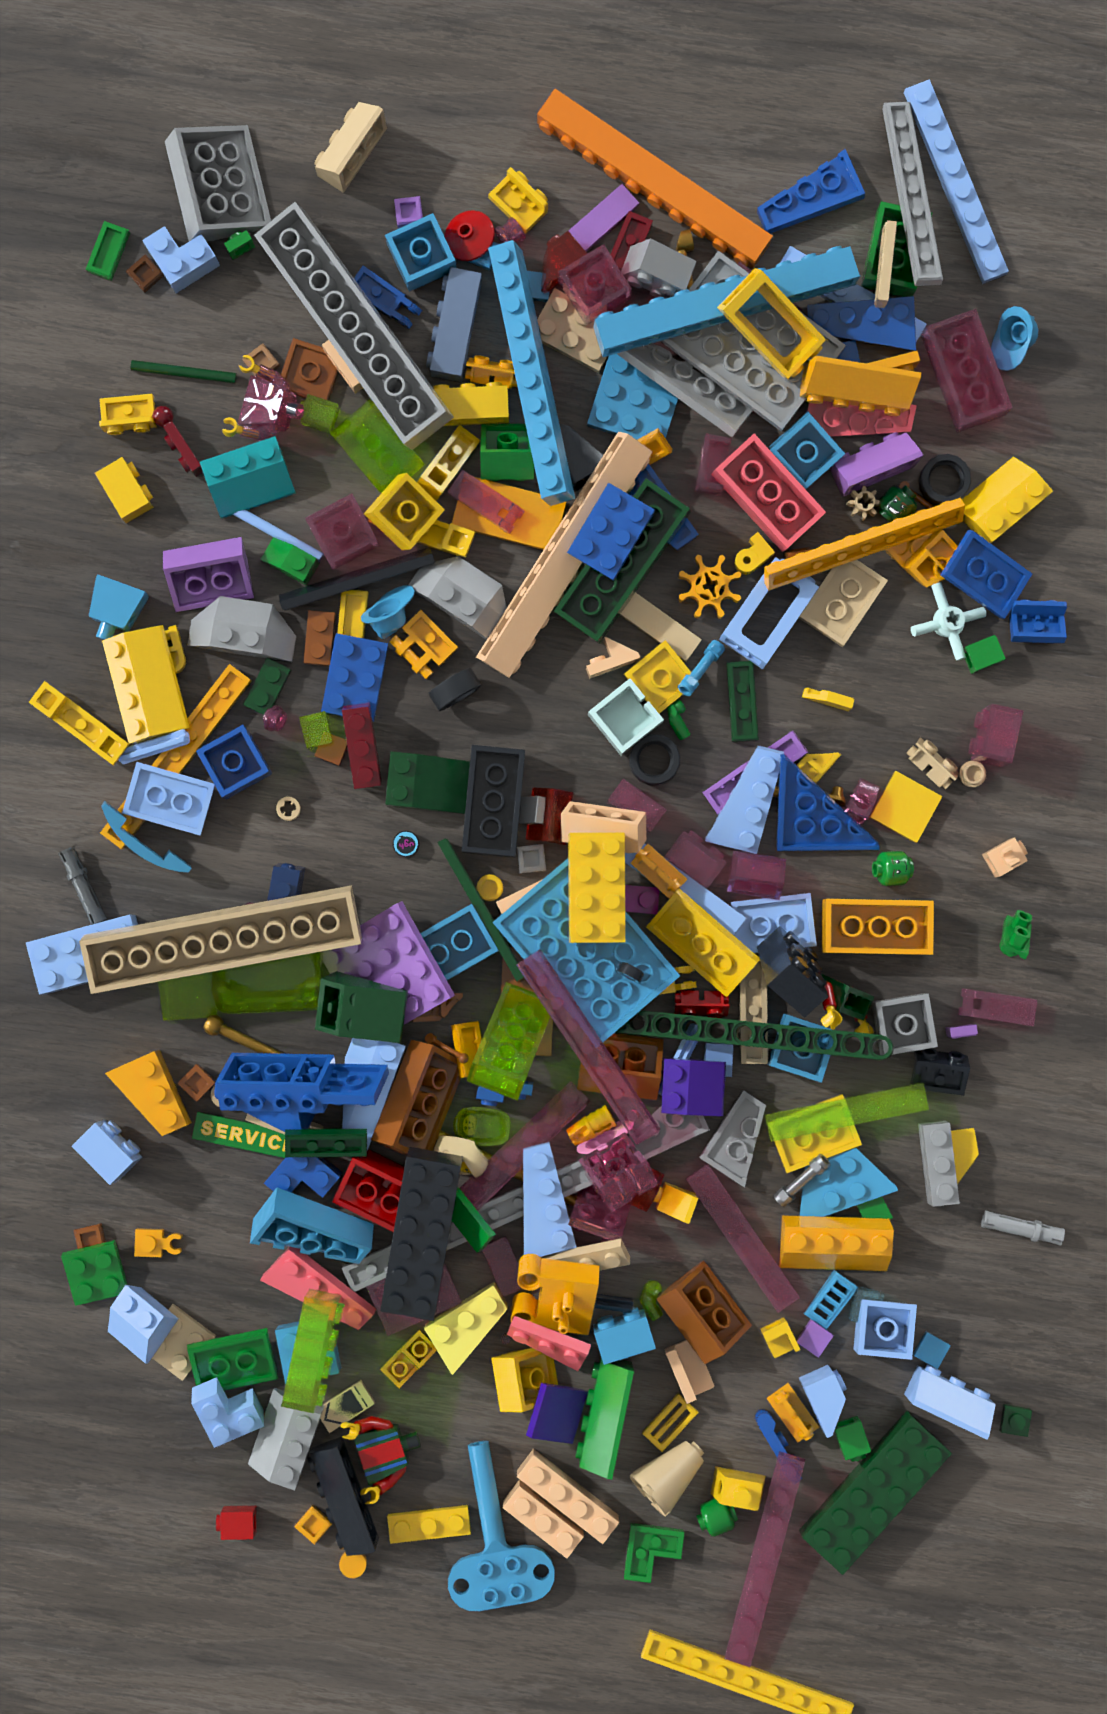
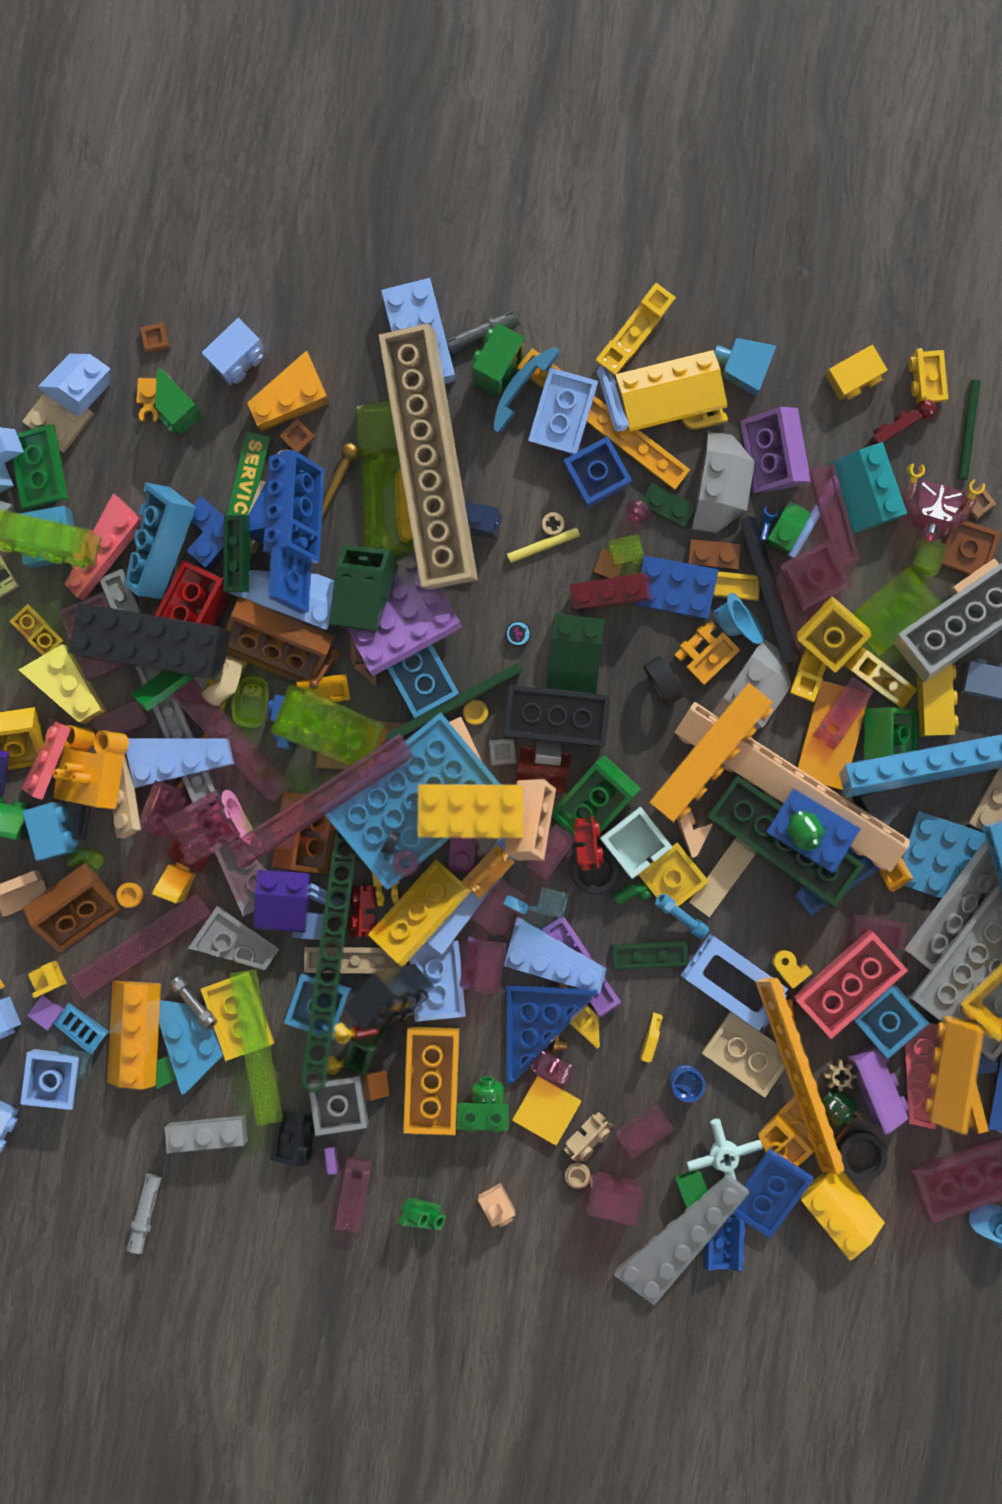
camera: 95 degrees right, 0 degrees up
(94, 1272) = (123, 341): green plate -> none
(116, 868) = (498, 360): none -> green brick
(167, 1213) = (175, 407): none -> green slope
(275, 512) = (834, 513): none -> clear pink tile
(280, 967) = (402, 514): none -> yellow hinge
(283, 582) = (767, 521): none -> blue hand
(310, 818) = (543, 545): none -> light yellow bar
(483, 368) = (971, 712): light orange hinge -> none
(530, 638) = (711, 752): none -> light orange brick
(582, 759) = (598, 794): none -> green slope
(591, 1126) = (249, 805): light orange hinge -> none
(612, 538) = (805, 831): none -> green head
(617, 766) = (587, 833): none -> red hinge
(660, 956) = (403, 870): none -> plate
(689, 1251) = (129, 895): none -> light orange tile
(690, 805) = (551, 903): none -> clear light blue panel
(692, 840) = (516, 904): none -> dark azure tile
(720, 580) = (763, 937): light orange gear -> none
(874, 661) = (686, 1083): none -> blue wheel
(884, 986) = (375, 1085): none -> dark orange tile
(914, 872) = (482, 1117): none -> green bracket
(925, 704) = (644, 1131): none -> clear pink brick
(931, 1350) = (31, 1123): dark azure tile -> none
(964, 1150) = (218, 1159): yellow slope -> none
(1051, 678) = (669, 1253): none -> light grey wing

